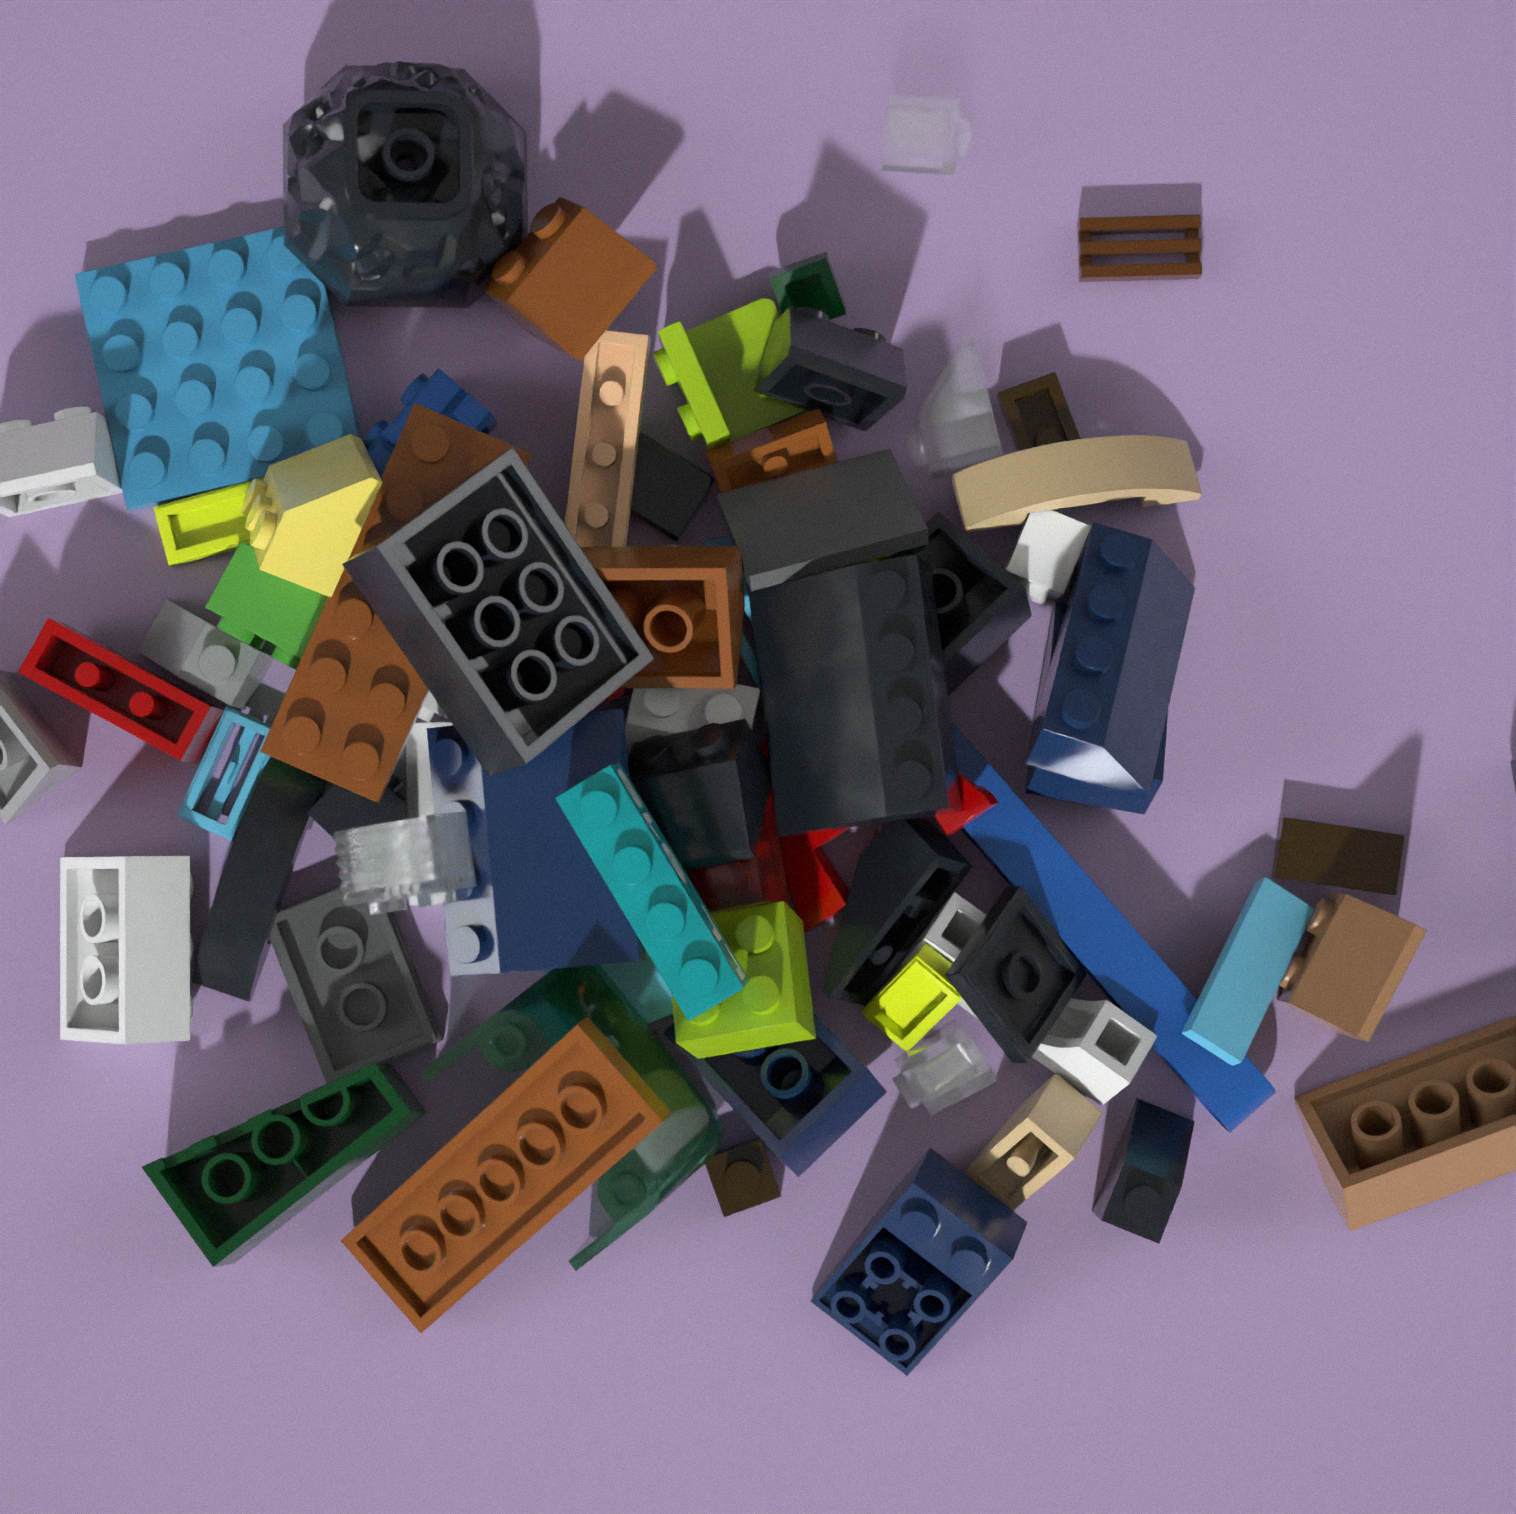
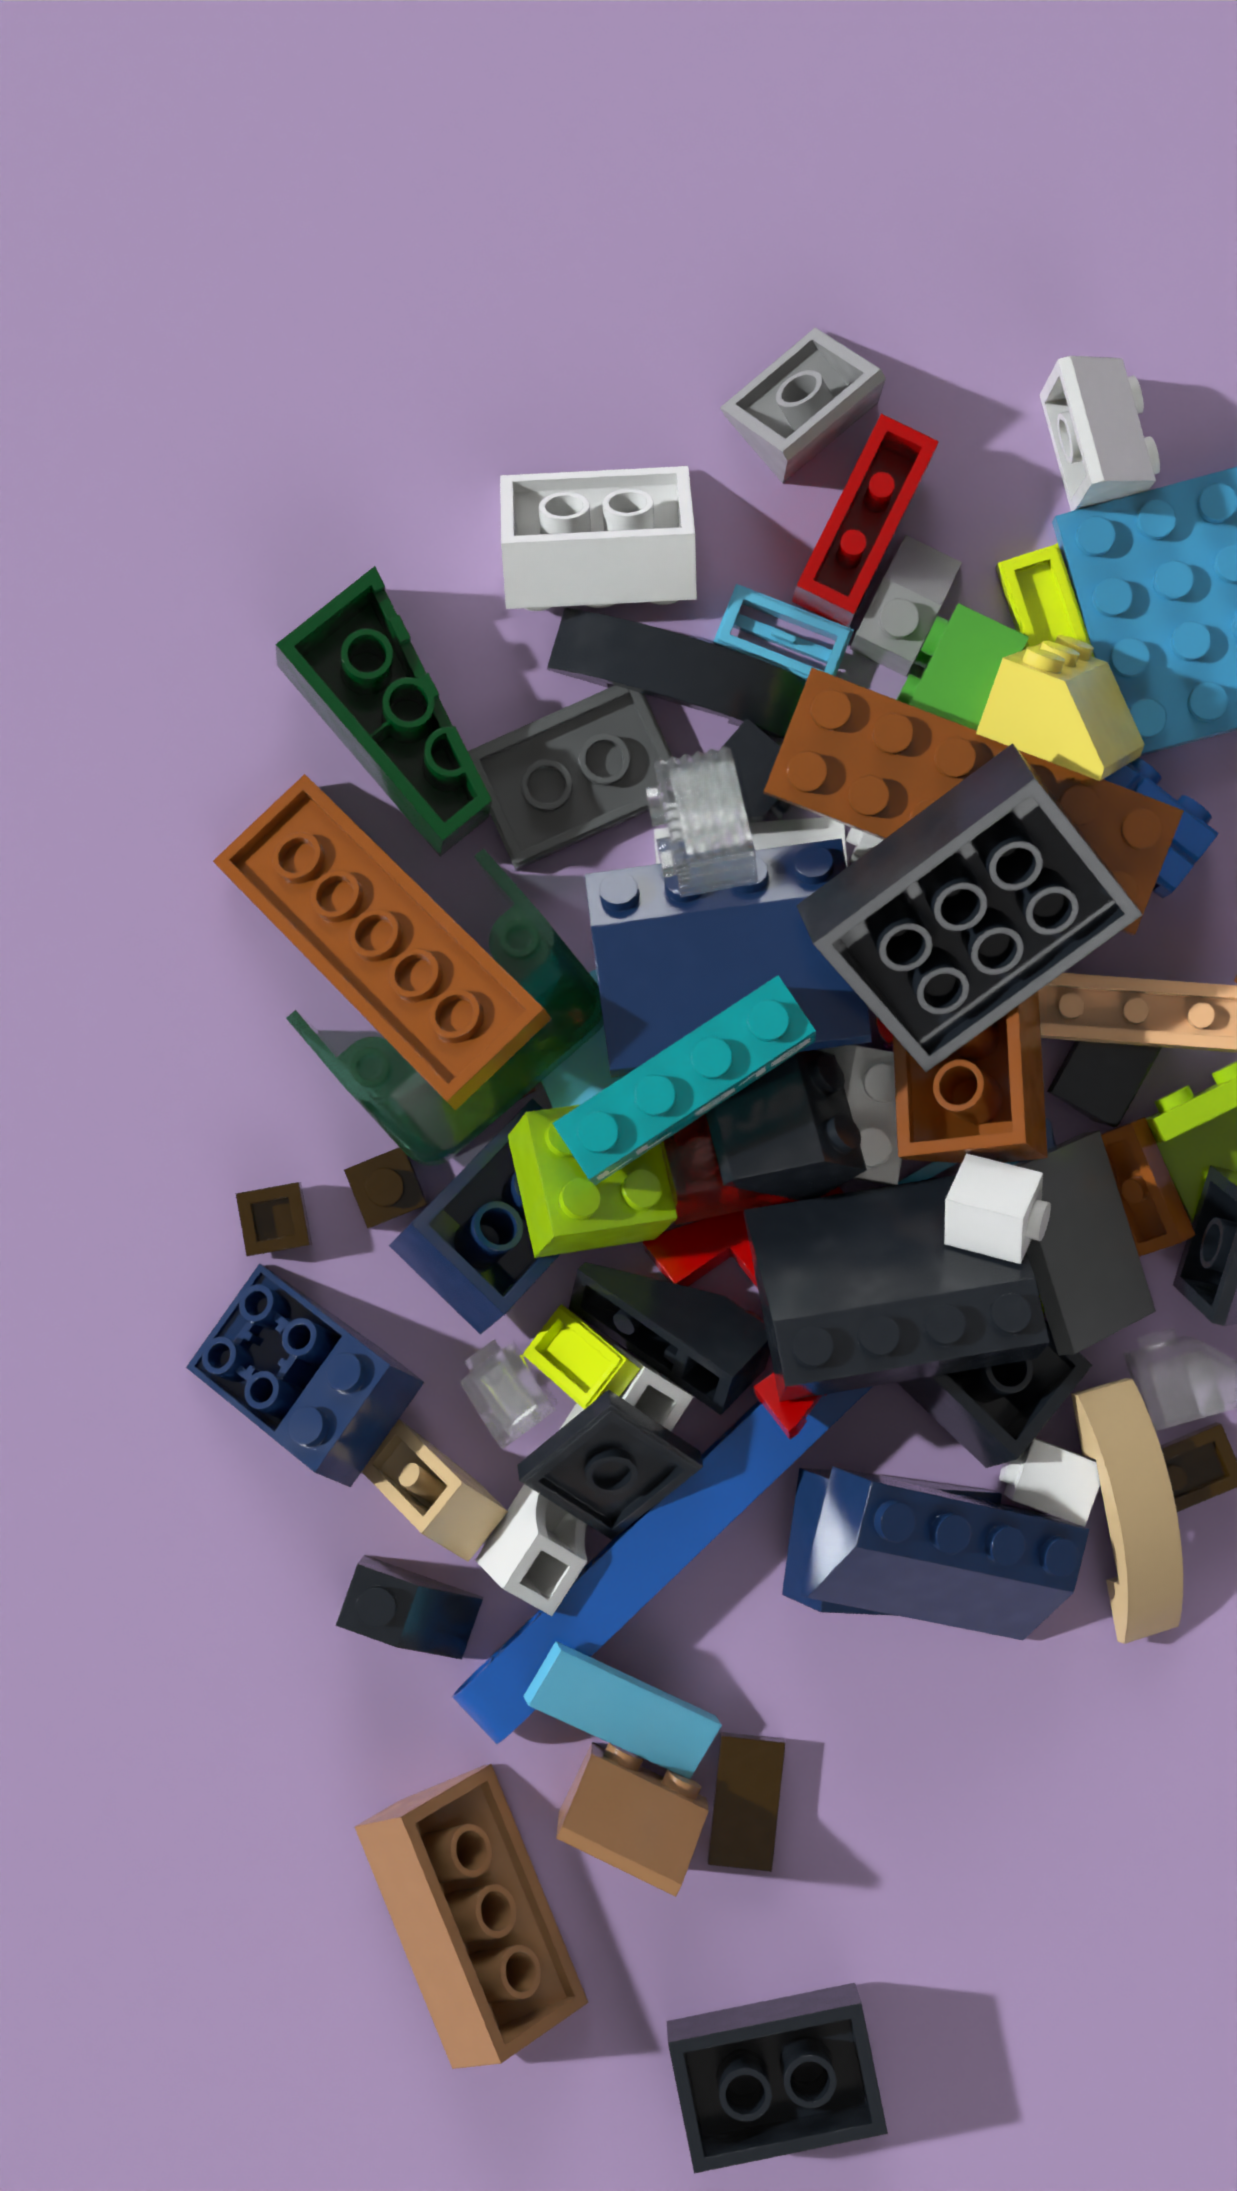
camera: 85 degrees right, 0 degrees up
(768, 1286) = (273, 1219): none -> dark brown plate
(787, 599) = (995, 1209): none -> white brick

